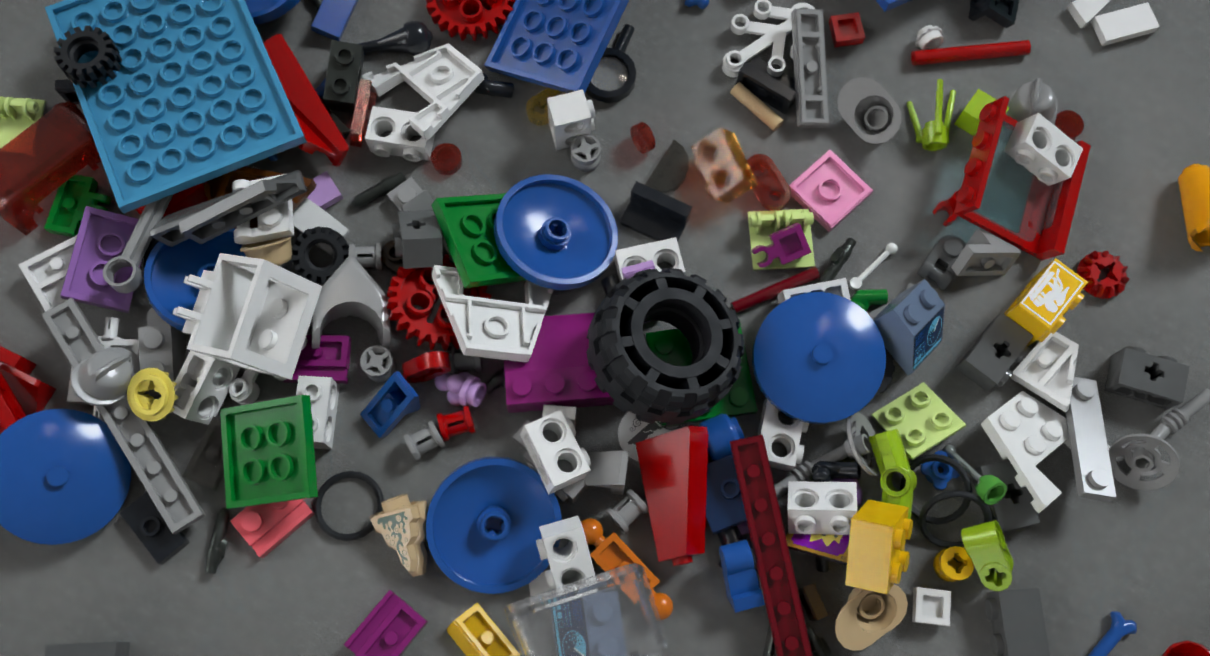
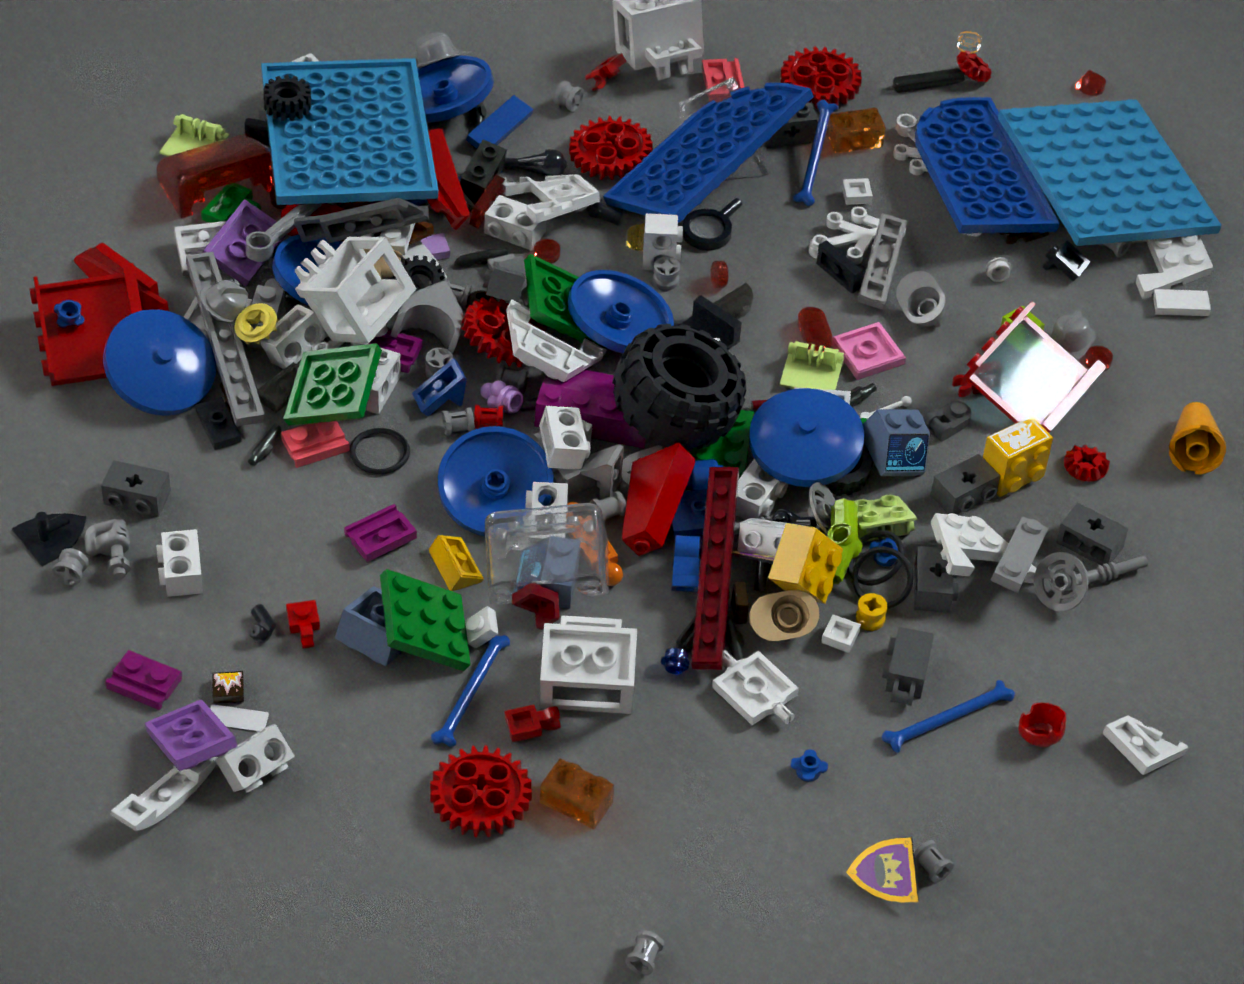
camera: 15 degrees right, 25 degrees down
(404, 530) = (420, 468): tan rock -> none
(426, 366) = (481, 374): red beam -> none
(728, 162) = (780, 306): clear orange brick -> none
(756, 106) = (827, 280): tan piece -> none
(786, 245) = (813, 369): magenta plate -> none
(846, 29) = (927, 246): red plate -> none
(934, 134) = (974, 333): lime plant -> none
(970, 52) = (1032, 288): red piece -> none
(985, 256) = (980, 417): light grey slope -> none
(988, 487) = (913, 553): bright green hinge -> none
(989, 554) = (899, 597): lime piece -> none
(1043, 149) = (1060, 356): white brick -> none
(1050, 370) = (1008, 507): white wing -> none

